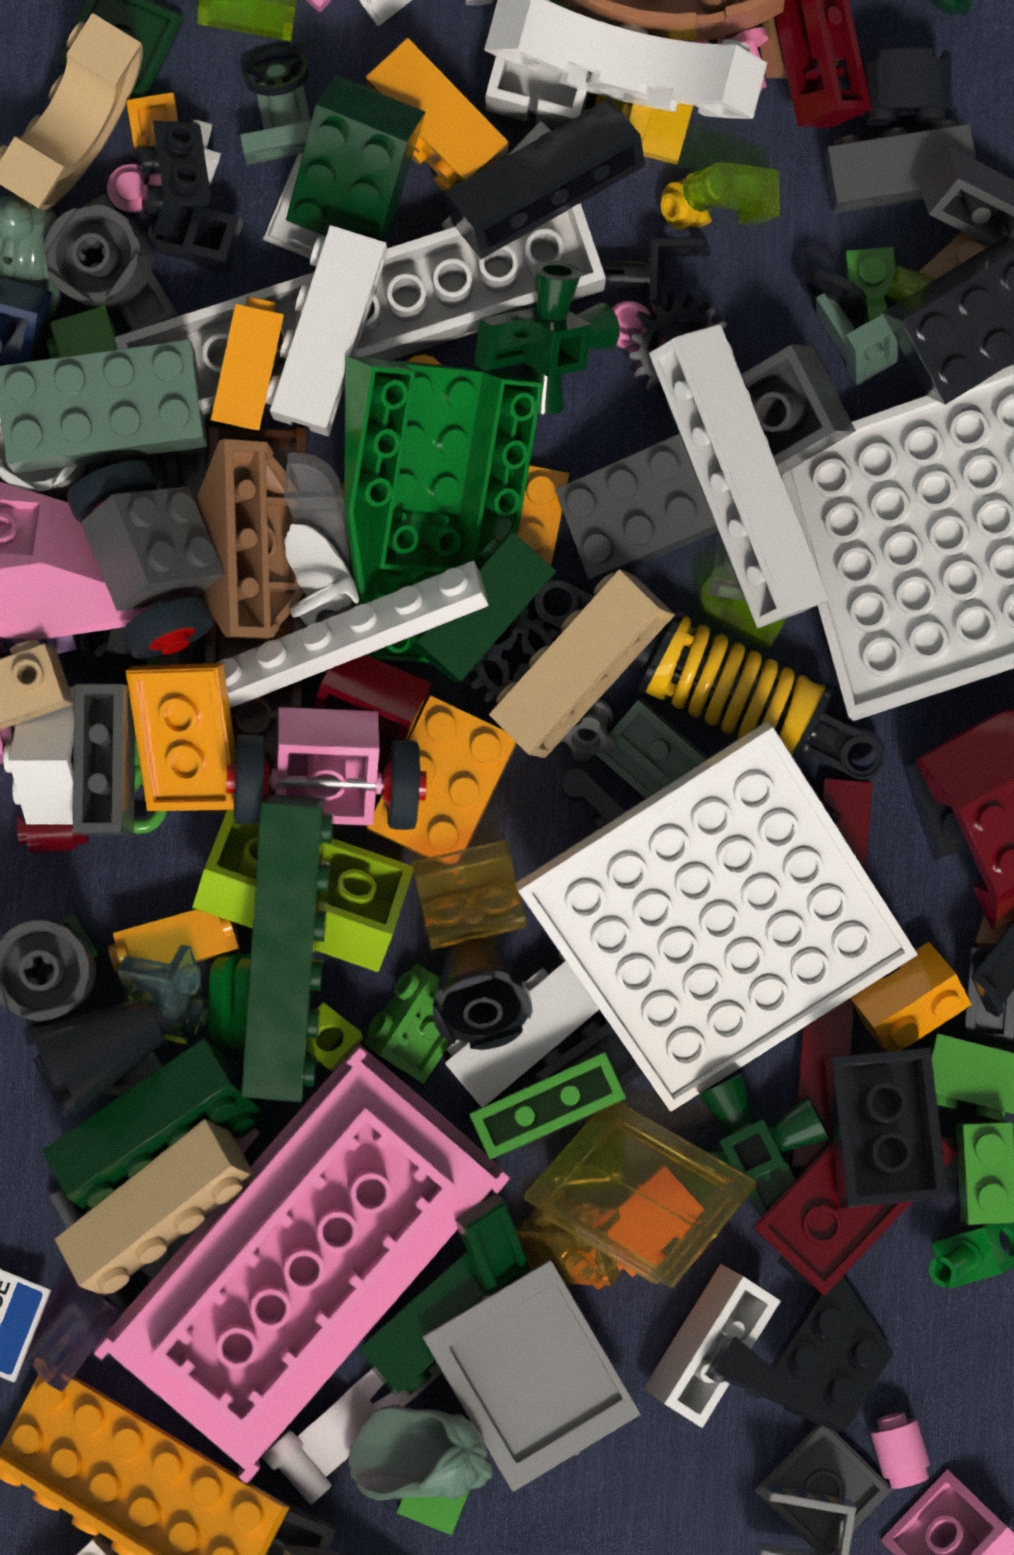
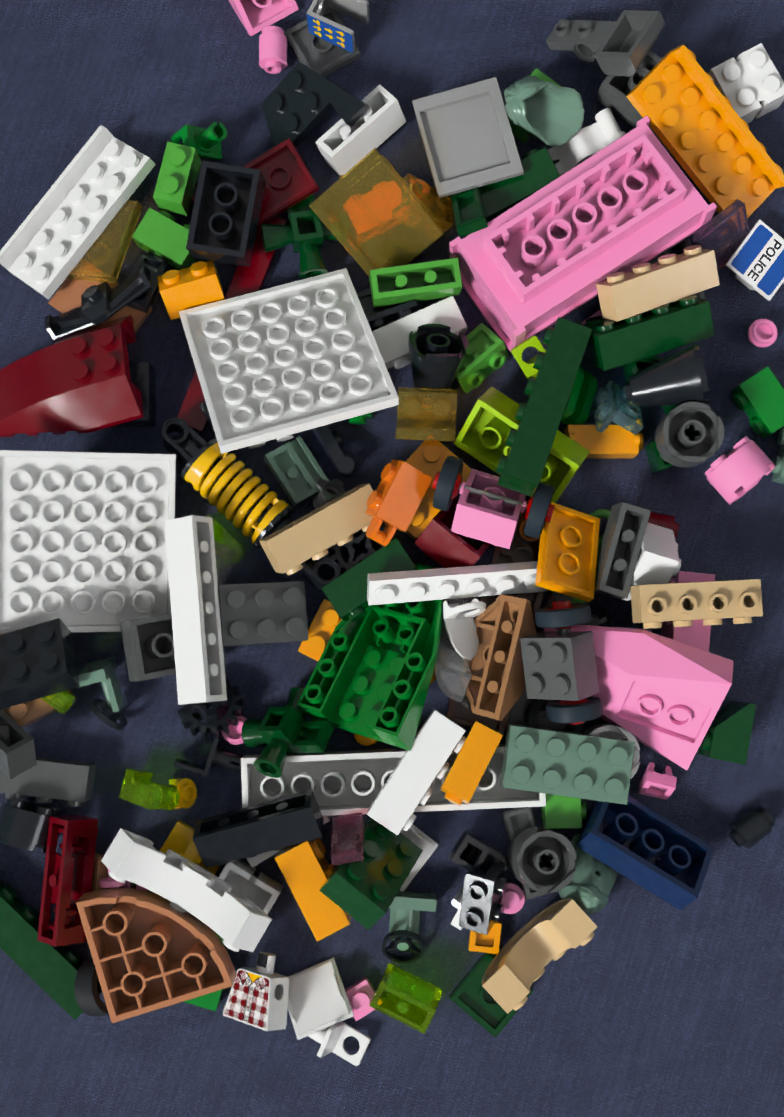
camera: 160 degrees left, 0 degrees up
(405, 200) = (347, 839): none -> clear pink tile
(478, 736) = (395, 500): none -> orange brick
(873, 273) = (81, 717): bright green plate -> none

